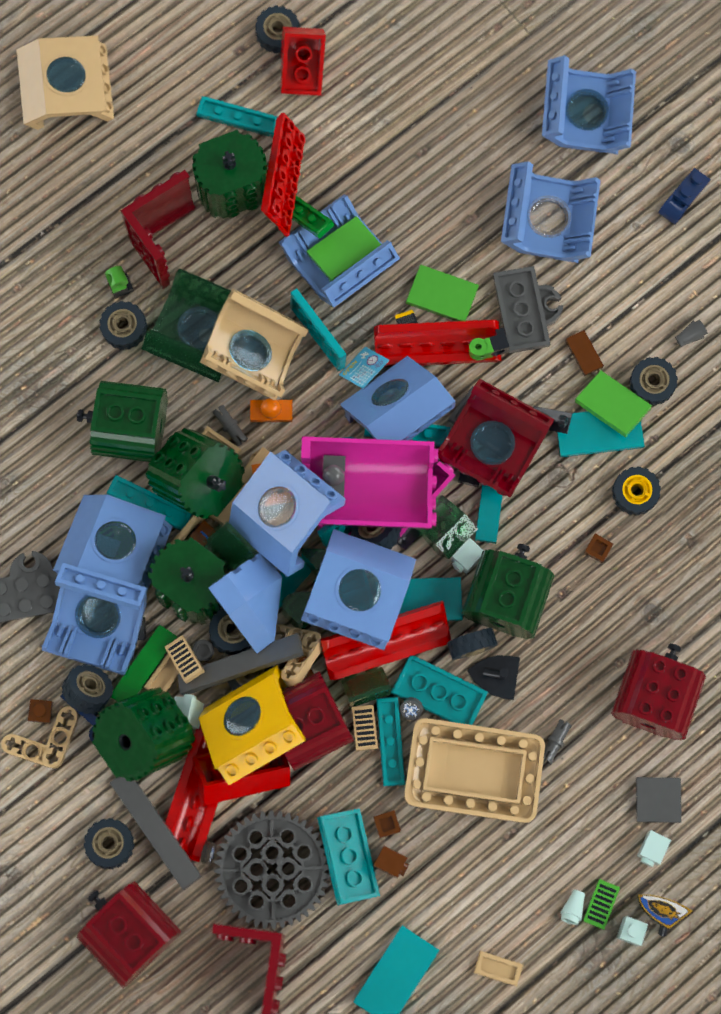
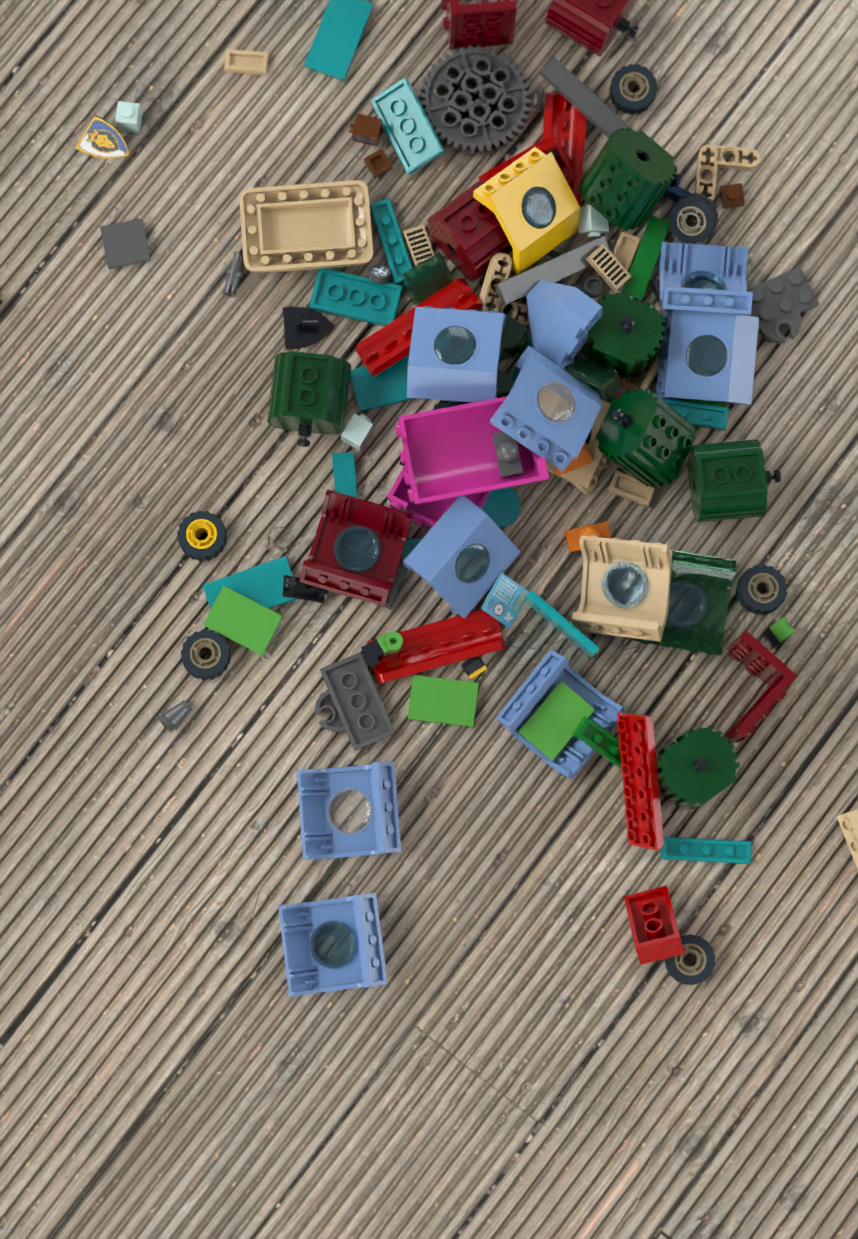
camera: 165 degrees right, 5 degrees up
(230, 425) = (625, 511): dark grey pin -> none
(451, 528) = (381, 451): clear green slope -> none
(472, 643) = (335, 340): black wheel -> none
(573, 908) = (187, 126): light aqua cone -> none
(584, 353) = (282, 671): reddish brown tile -> none
(598, 548) = (228, 470): reddish brown plate -> none
(601, 904) = (162, 138): tile -> none
(653, 848) = (122, 196): light aqua brick -> none
(659, 693) = (143, 330): dark red piece -> none
(684, 196) = (210, 868): dark blue plate -> none

